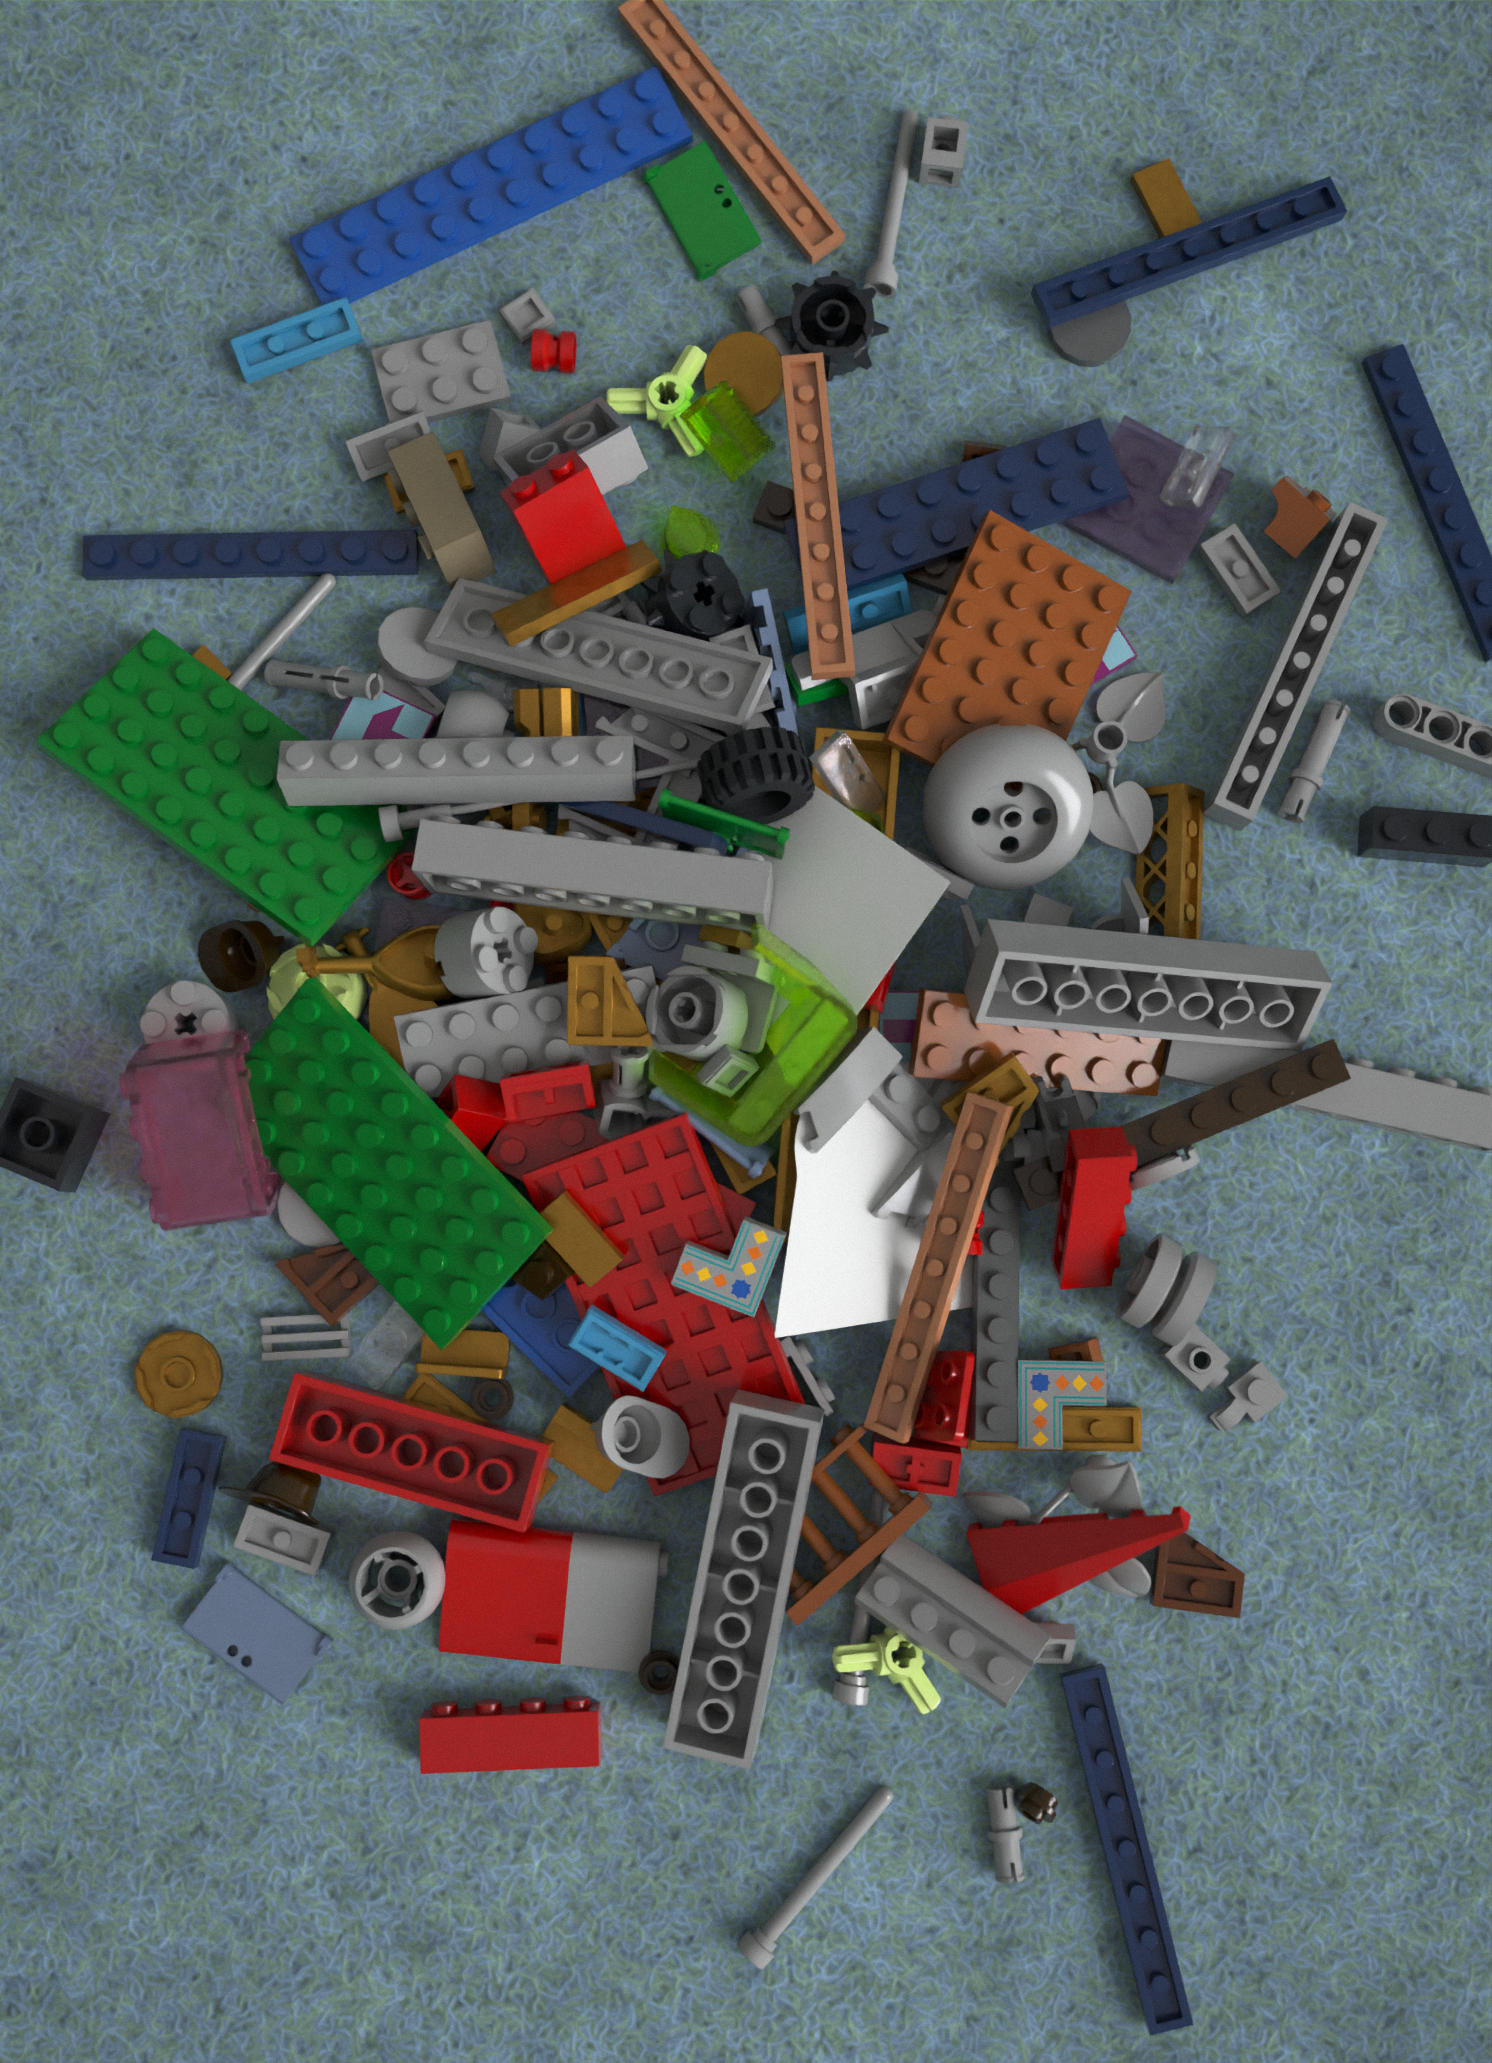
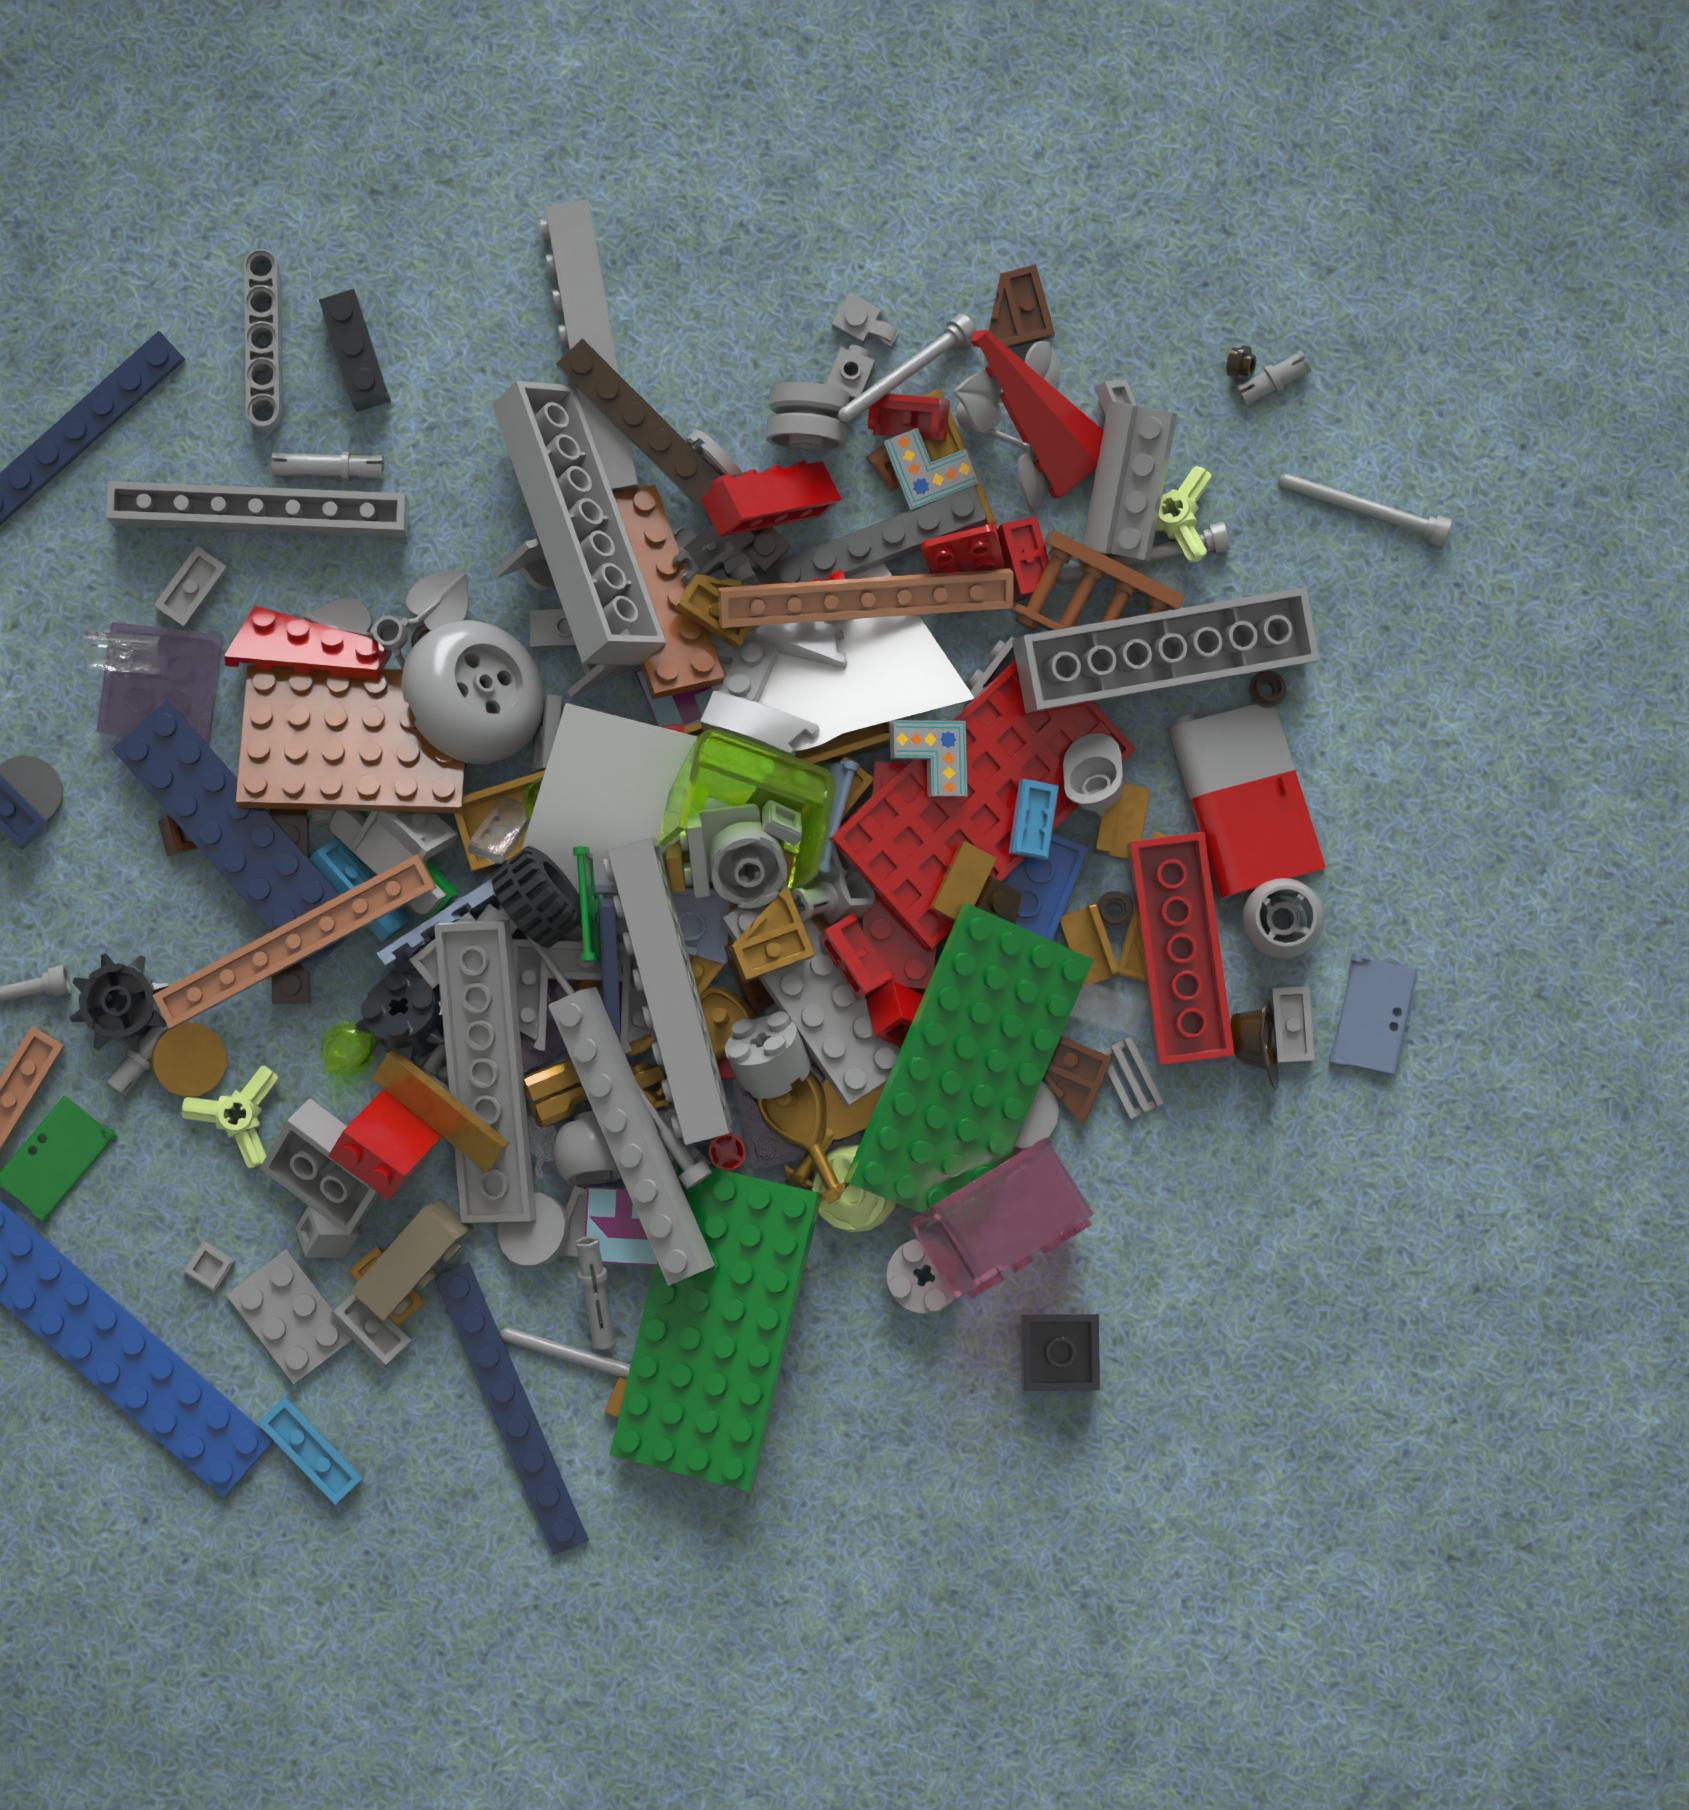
camera: 115 degrees left, 0 degrees up
(189, 1498) = (1293, 1112): dark blue plate -> none
(194, 1376) = (1202, 1177): pearl gold tile -> none
(238, 954) = (850, 1263): dark brown piece -> none
(510, 1736) = (1364, 782): red brick -> none
(553, 351) = (232, 1228): red wheel -> none
(727, 431) = (247, 1049): clear neon green brick -> none
(1126, 1849) = (1244, 284): dark blue plate -> none
(1129, 1395) = (902, 413): none -> red hinge
(1130, 654) = (288, 641): none -> wing
(1182, 862) = (461, 535): pearl gold fence -> none
(1194, 1495) = (958, 333): none -> light grey piece
(1299, 516) = (127, 553): dark orange brick -> none

